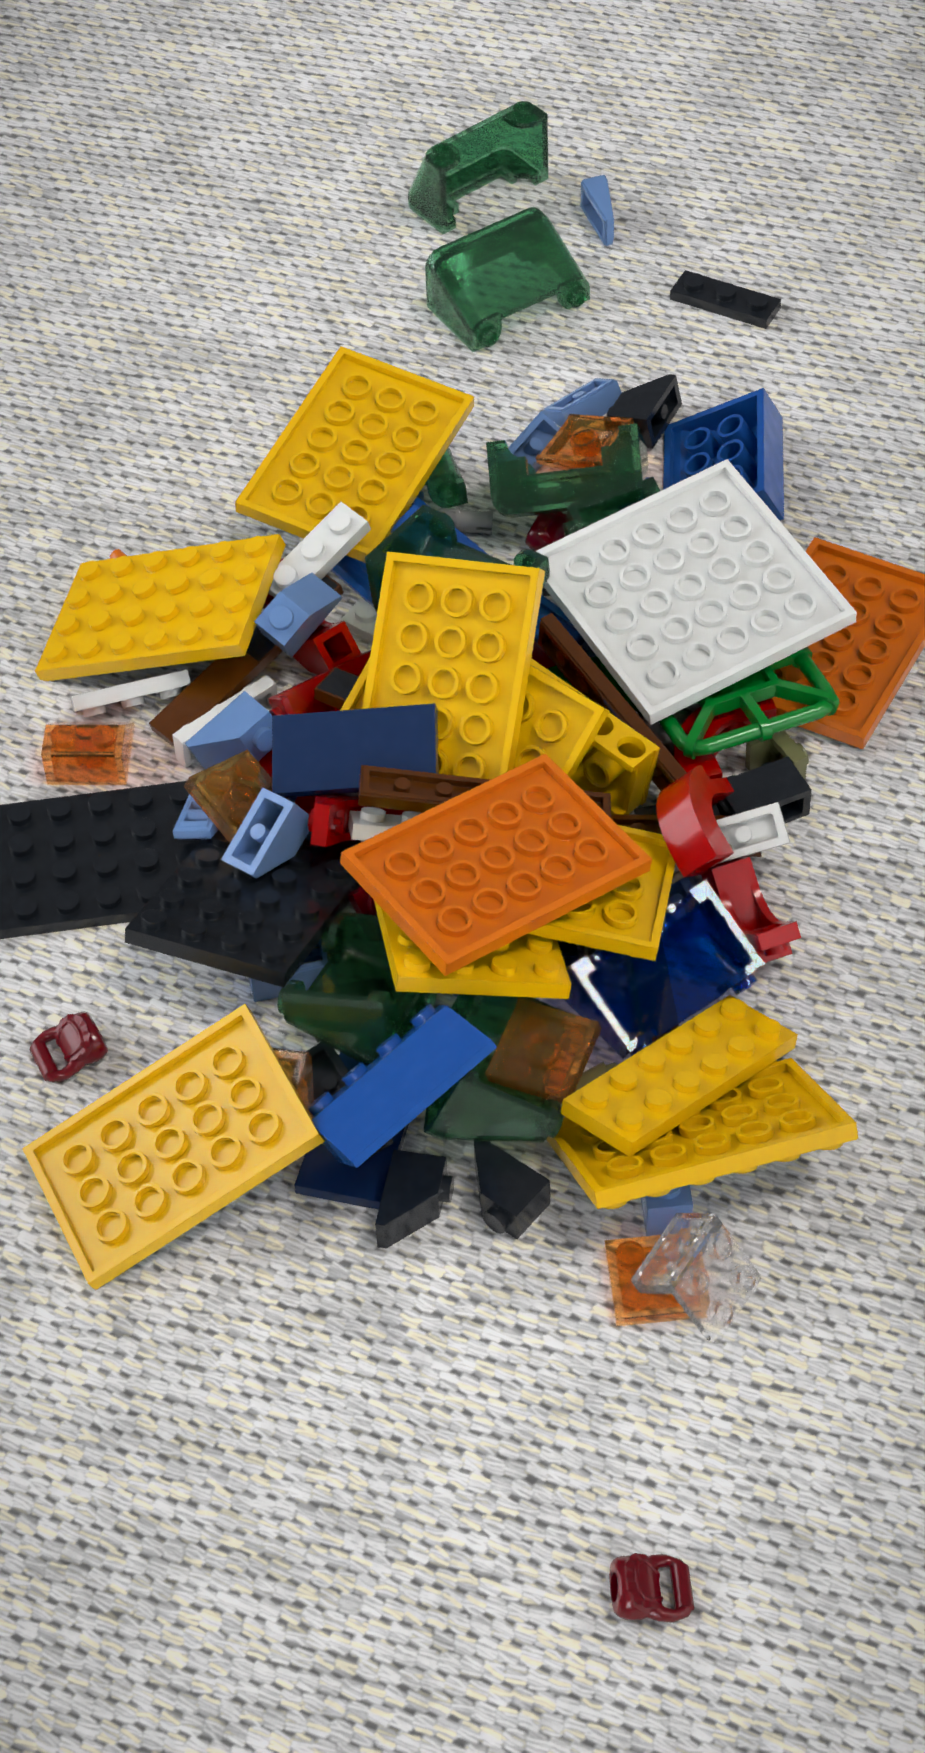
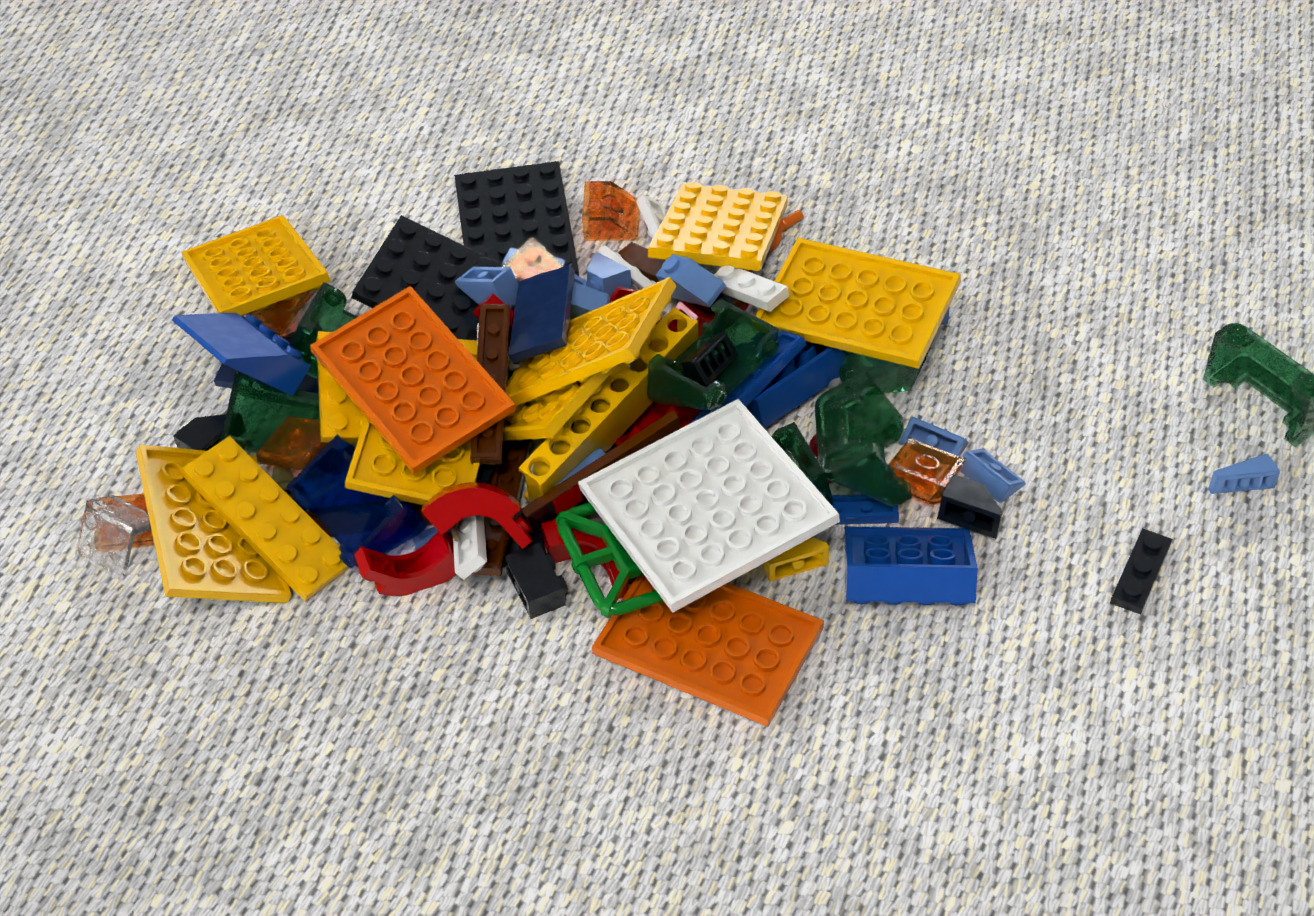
camera: 90 degrees right, 0 degrees up
(78, 1041) = (361, 231): dark red piece -> none
(412, 1195) = (209, 389): black slope -> none
(501, 273) = (1129, 407): clear green windscreen -> none
(775, 749) = (574, 598): olive bracket -> none

